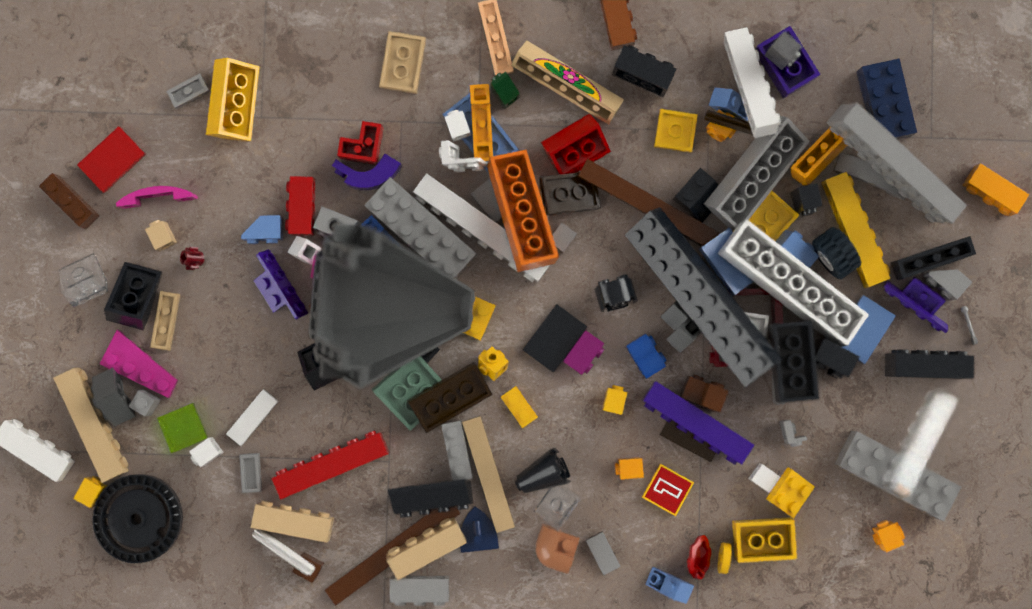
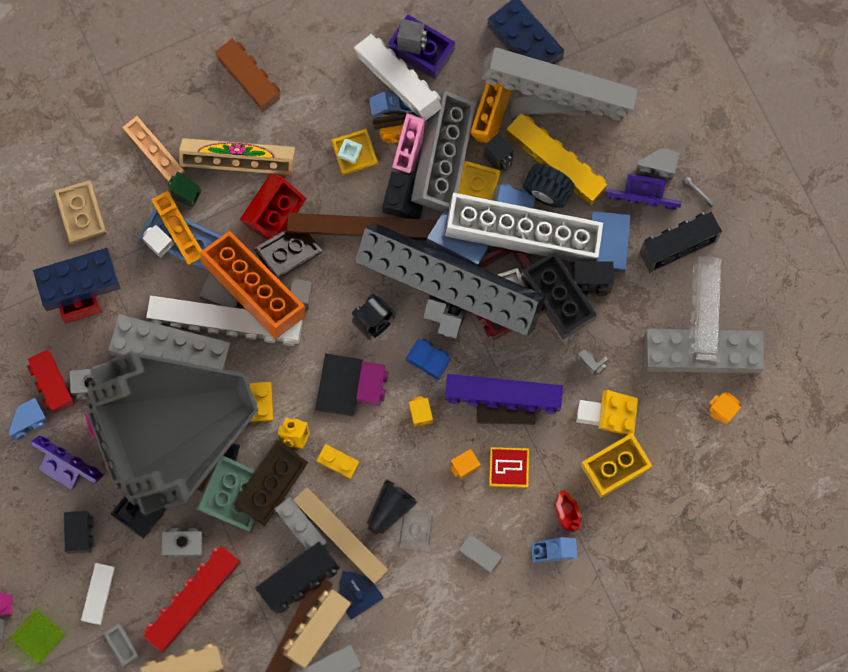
camera: 30 degrees left, 10 degrees down
(205, 452) = (70, 646): white brick -> none
(260, 355) = (78, 532): none -> black brick
(303, 250) = (72, 418): white brick -> none
(335, 408) = (170, 543): none -> light grey brick
(366, 127) = (76, 279): none -> dark blue brick
(370, 179) = (101, 327): dark purple arch -> none
(451, 158) = (177, 272): white bracket -> none
(556, 548) = (435, 569): nougat brick -> none
(644, 70) = (299, 113): black brick -> none
(672, 129) = (350, 151): none -> light aqua plate
(704, 394) = (498, 365): reddish brown brick -> none
(724, 558) = (589, 500): yellow piece -> none
(729, 151) = (410, 144): none -> bright pink slope
(933, 258) = (635, 149): black brick -> none
(995, 190) = (659, 66): light orange brick -> none

